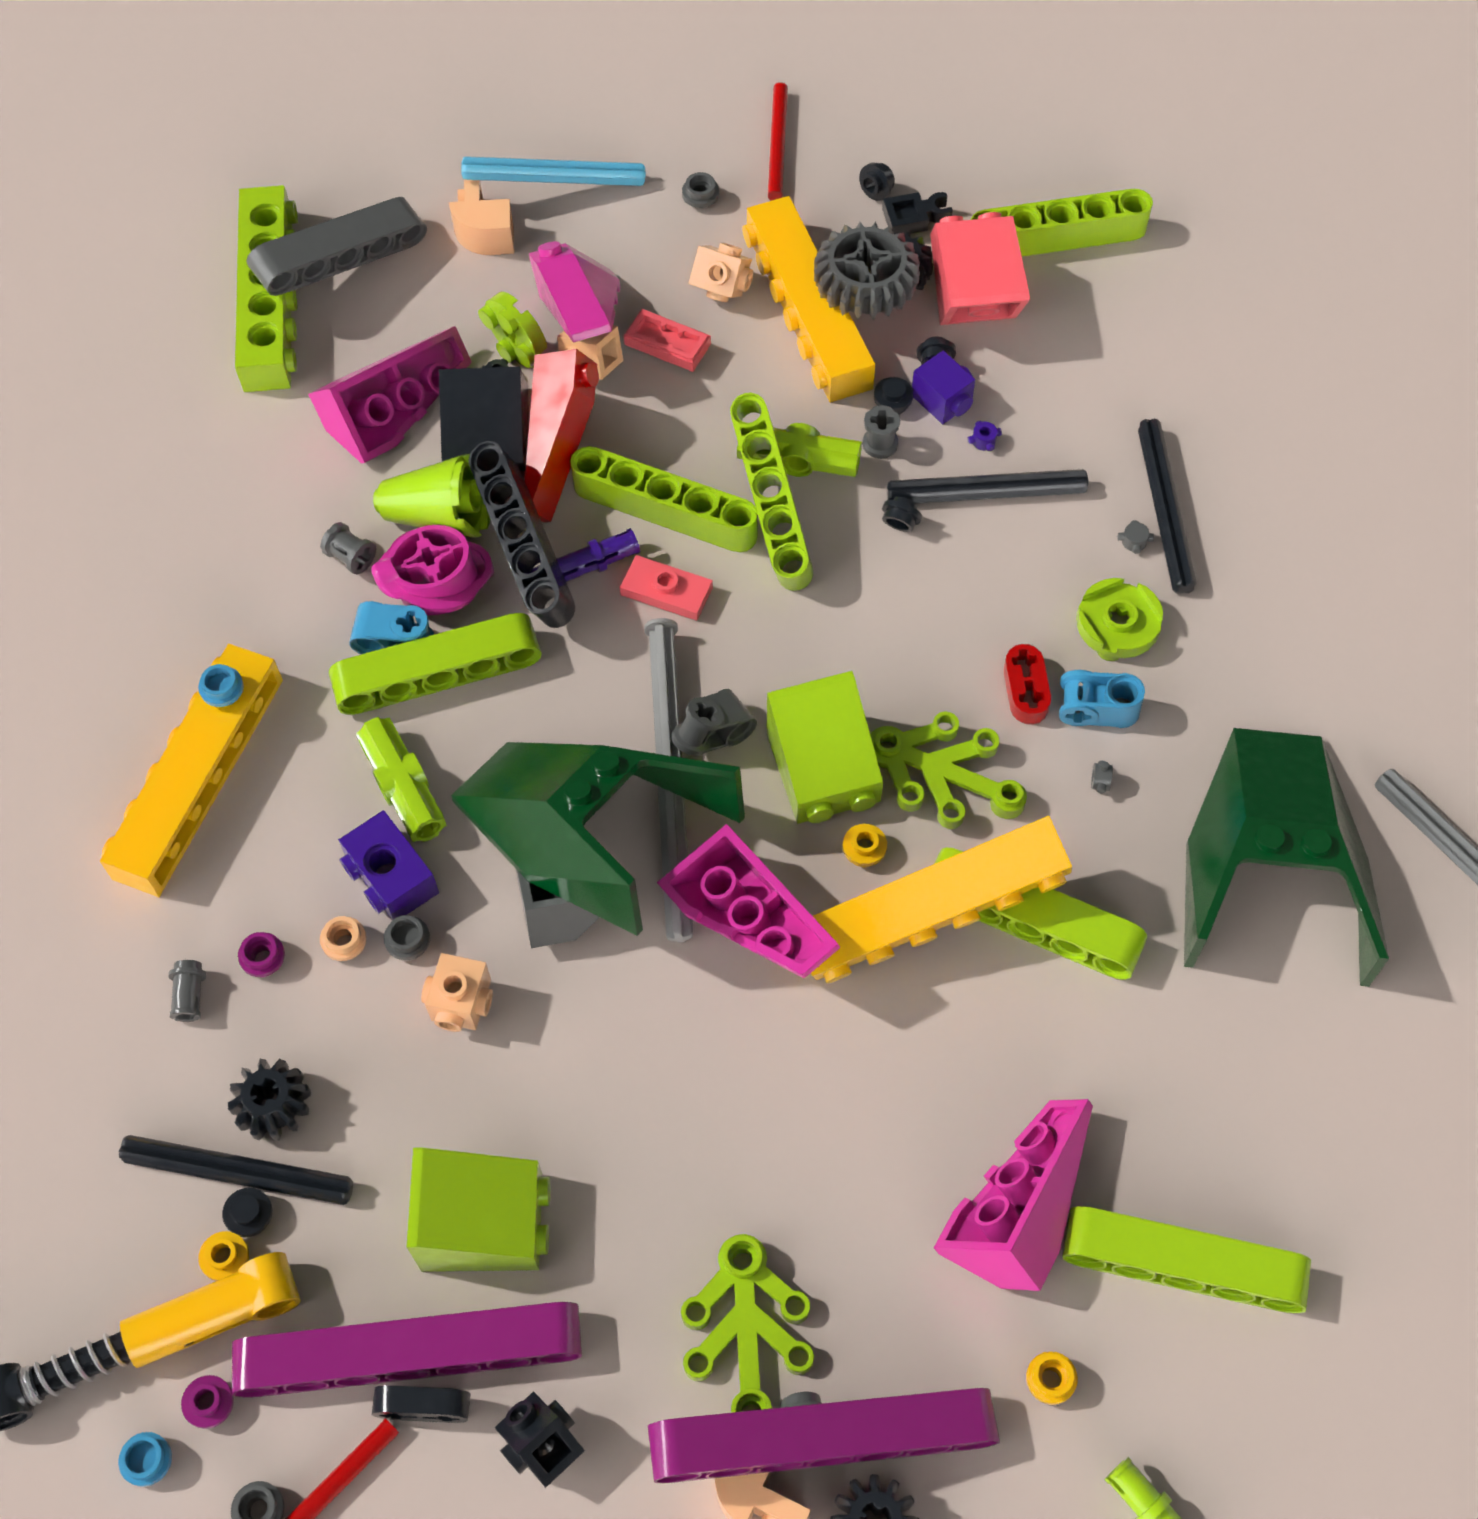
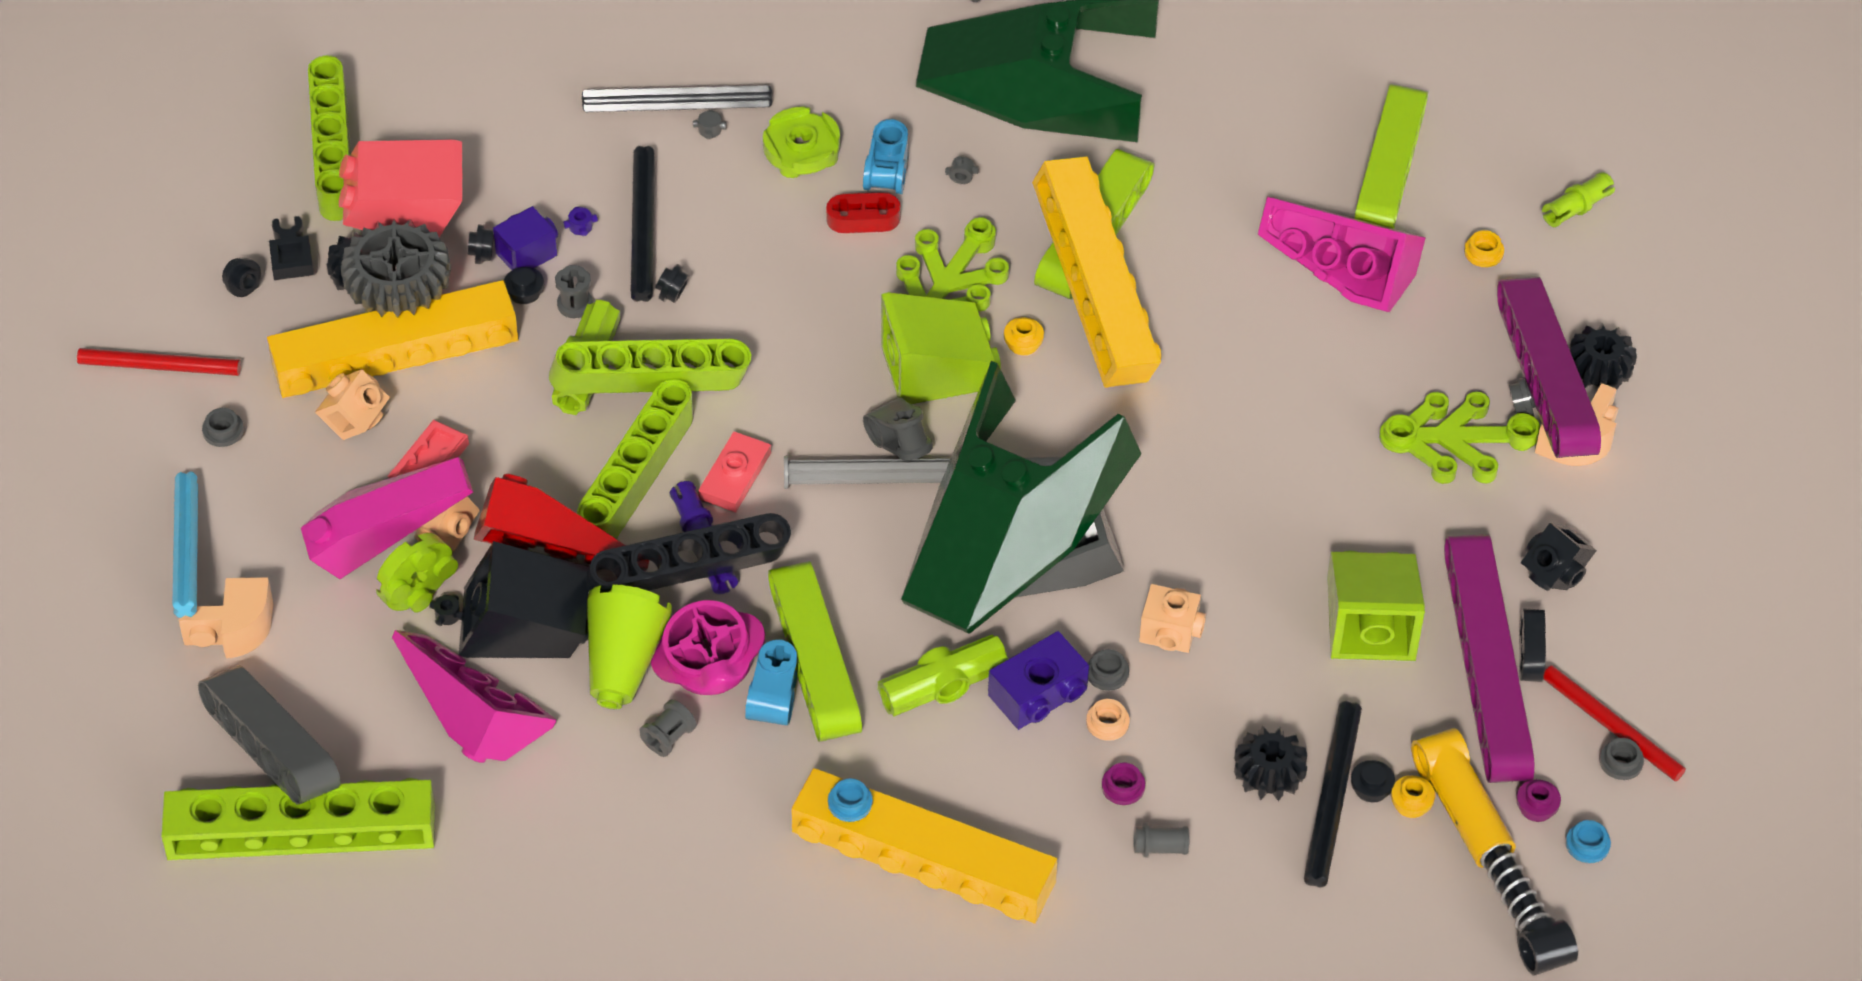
camera: 90 degrees left, 10 degrees down
(745, 902) = (1099, 387): dark pink wedge -> none

